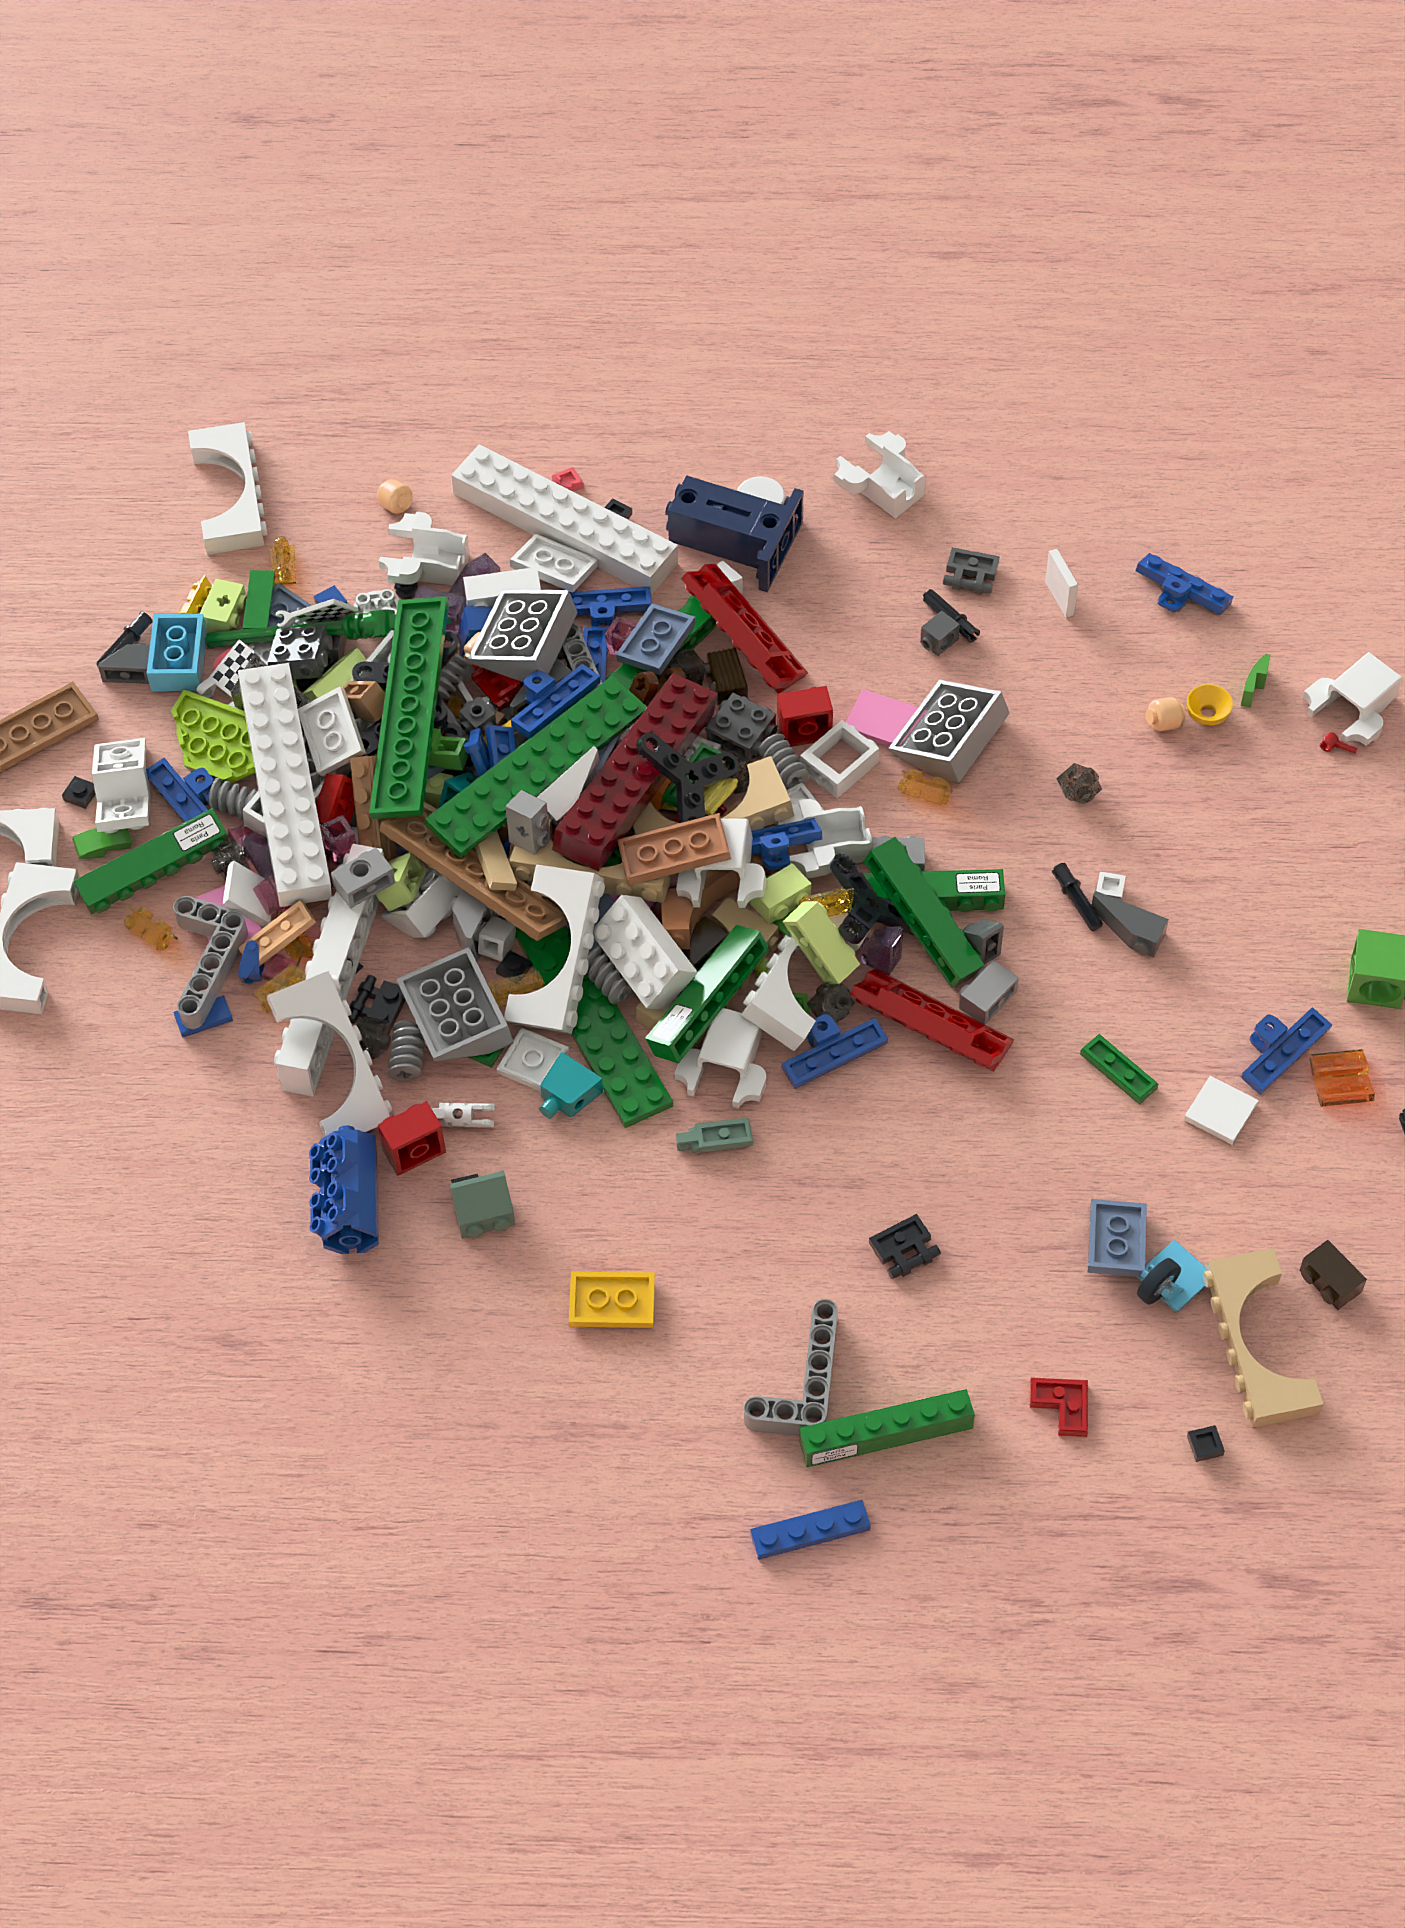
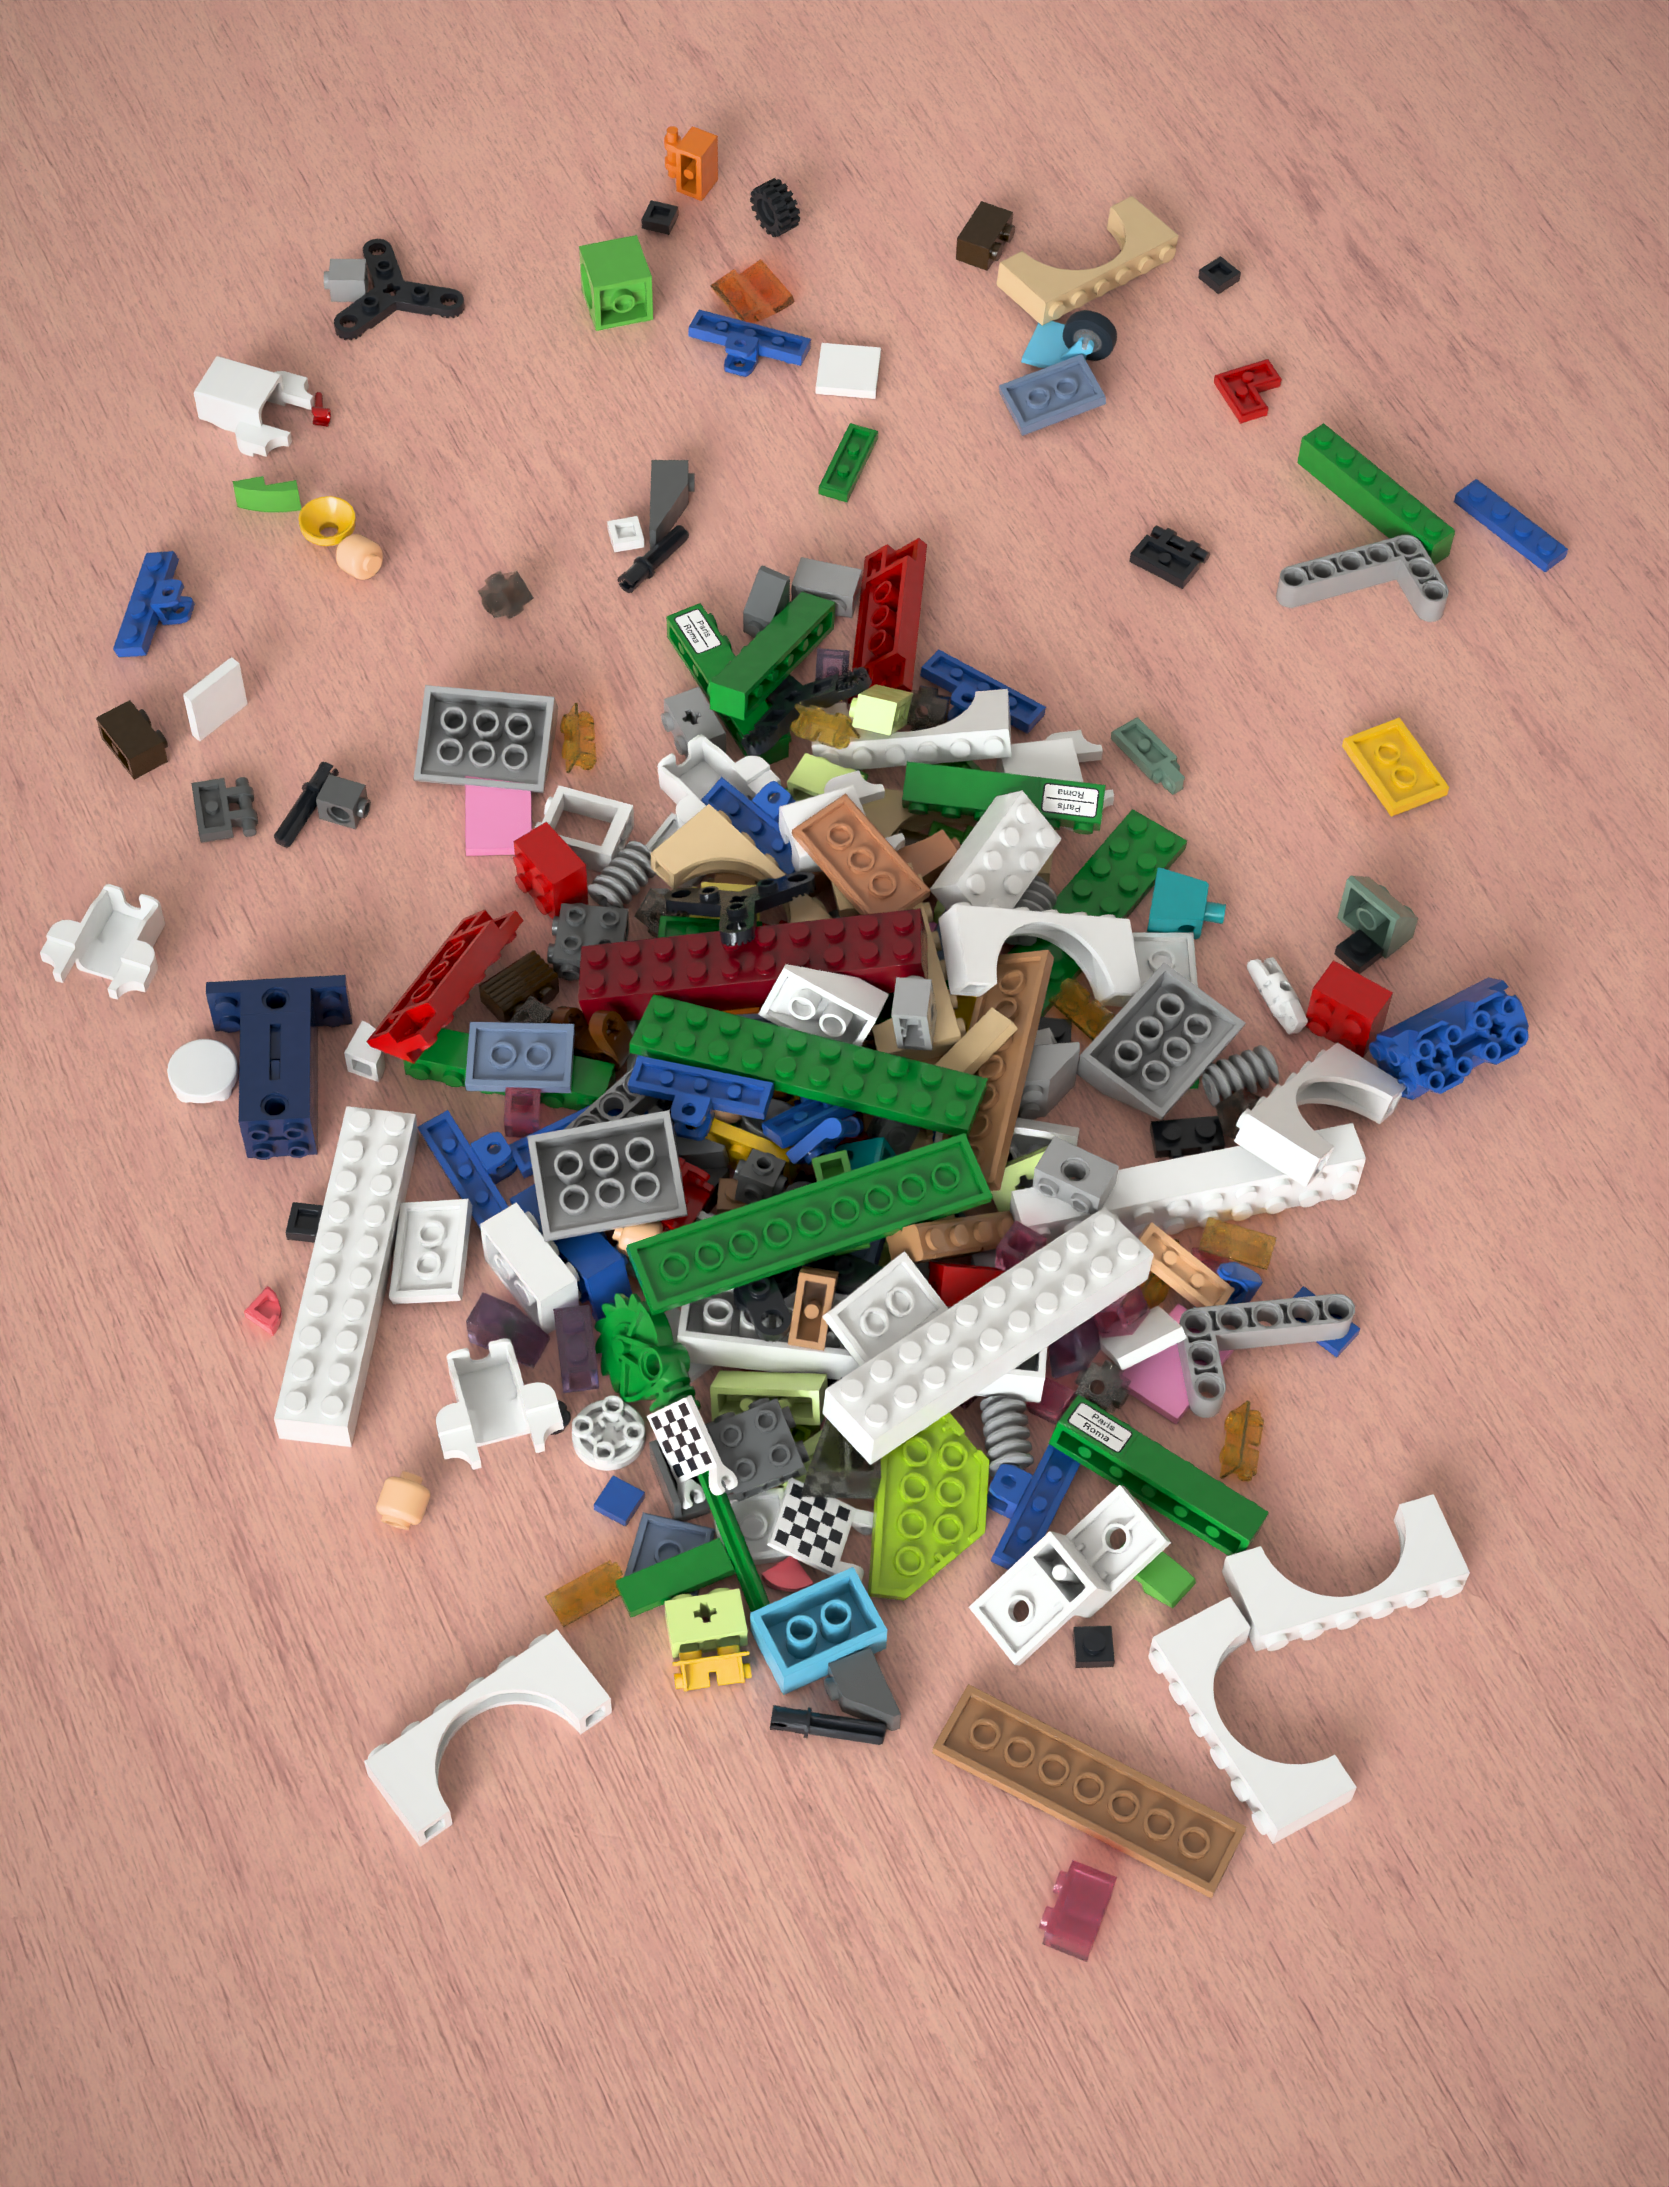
camera: 120 degrees left, 0 degrees up
(1060, 534) = (133, 739): none -> dark brown brick

